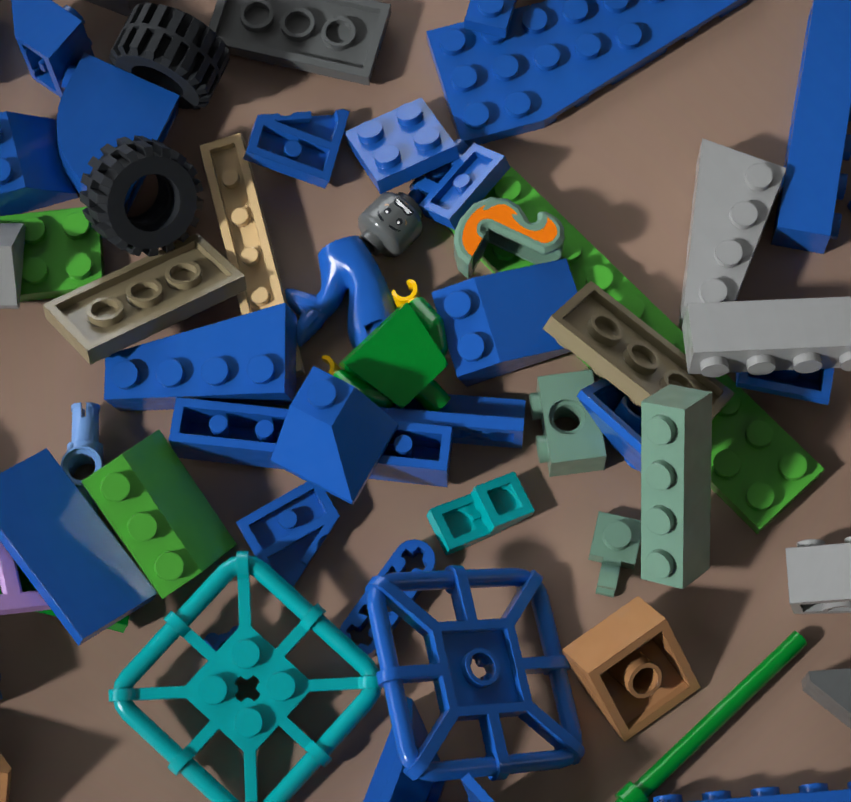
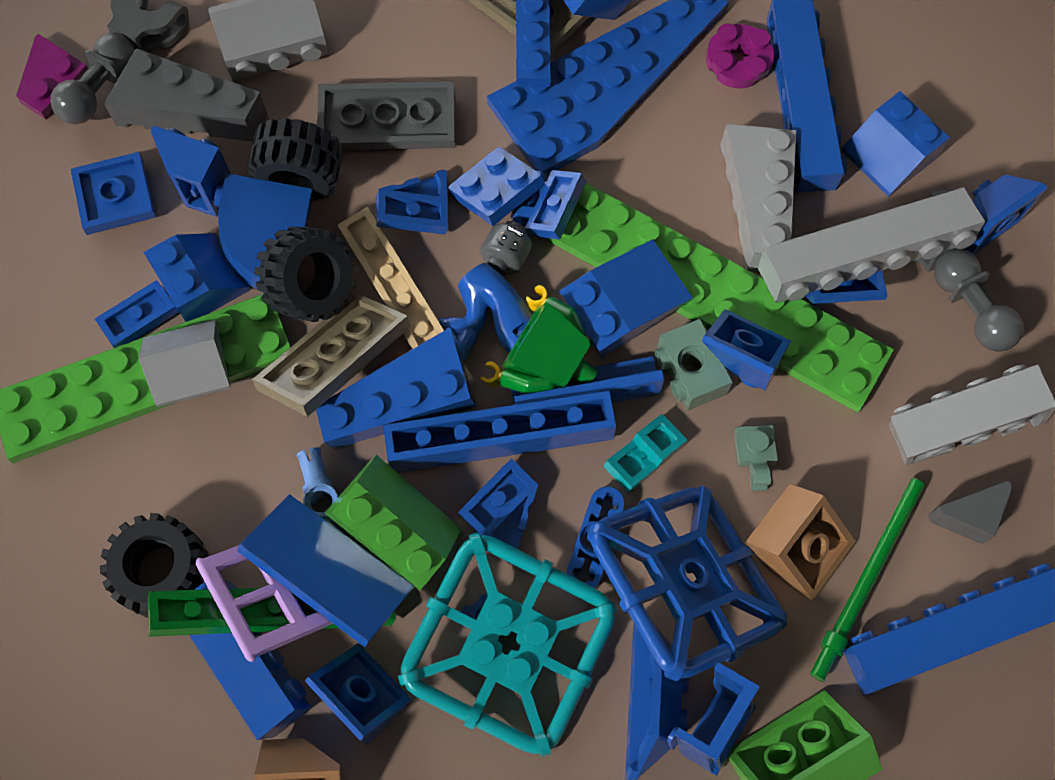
camera: 20 degrees left, 0 degrees up
(60, 697) = (359, 692): none -> blue slope
(333, 436) = (520, 422): blue slope -> none
(507, 227) = (602, 227): sand green animal -> none
(625, 348) = (737, 304): dark tan plate -> none
(675, 485) = (799, 389): sand green brick -> none
(762, 33) = (744, 39): none -> magenta plate

